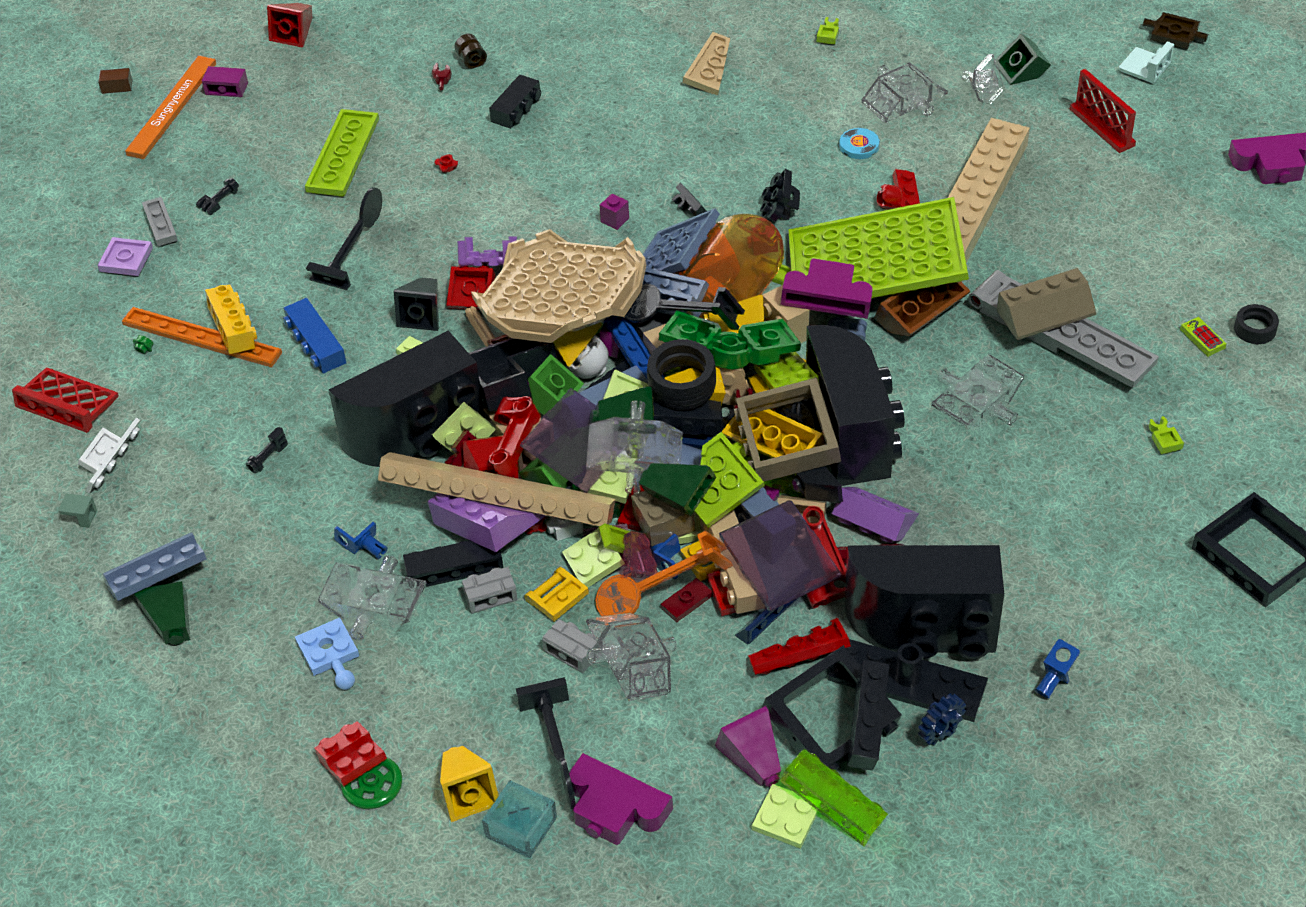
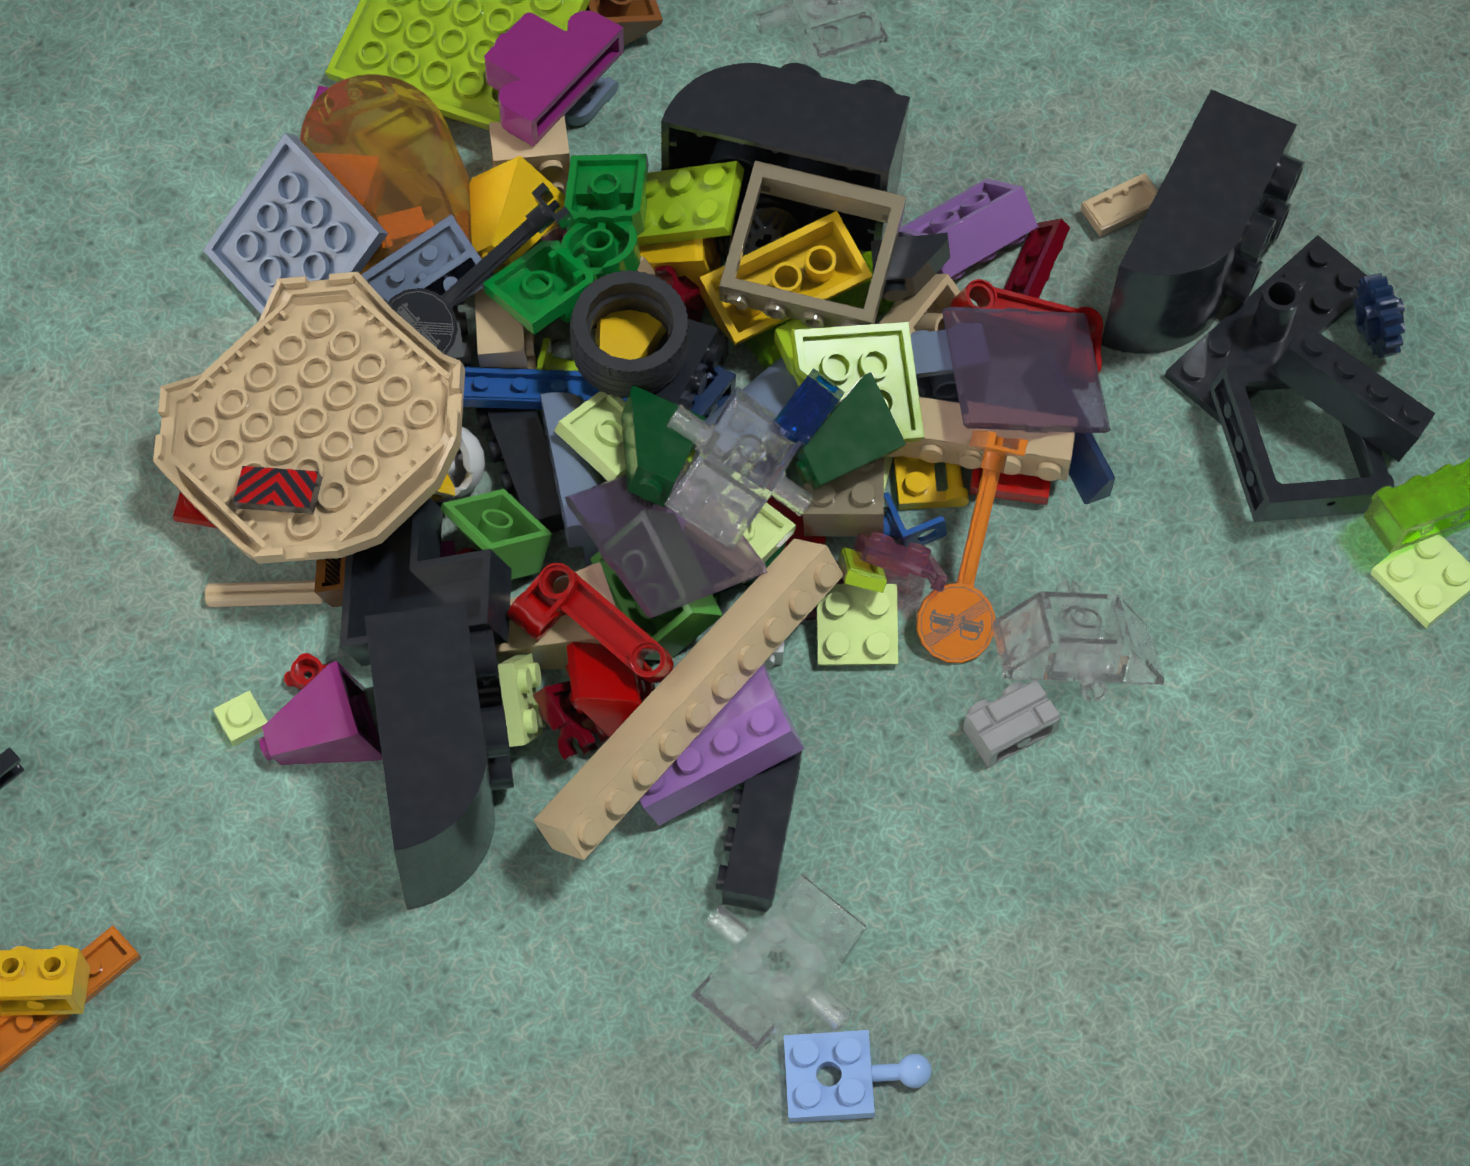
camera: 70 degrees left, 15 degrees up
(277, 443) = (369, 1057): black hinge -> none
(314, 335) = (119, 858): blue brick -> none
(349, 753) = (1069, 1110): red plate -> none
(363, 540) = (643, 941): blue bracket -> none
(381, 797) = (1097, 1123): green plate -> none
(417, 305) = (159, 657): black slope -> none
(466, 280) = (164, 571): red plate -> none
(466, 783) = (1194, 961): yellow slope -> none
(489, 257) = (115, 518): medium lavender plate -> none
(489, 589) = (844, 793): light grey brick -> none
(512, 285) = (277, 489): none -> tile
(519, 819) = (1302, 912): clear light blue brick -> none
(543, 696) = (1258, 820): black piece -> none
(561, 597) = (908, 699): yellow plate -> none
(614, 211) = (123, 288): magenta brick -> none
(614, 801) = (1316, 778): magenta brick -> none
(676, 452) = (808, 408): none -> clear blue slope
(686, 600) = (1000, 548): dark red plate -> none
(687, 198) = (188, 171): plate -> none
(752, 746) = (1308, 561): magenta slope -> none
(776, 197) = (254, 51): black piece -> none
(800, 648) = (1164, 417): red wing -> none
(1056, 669) = (1355, 148): blue bracket -> none

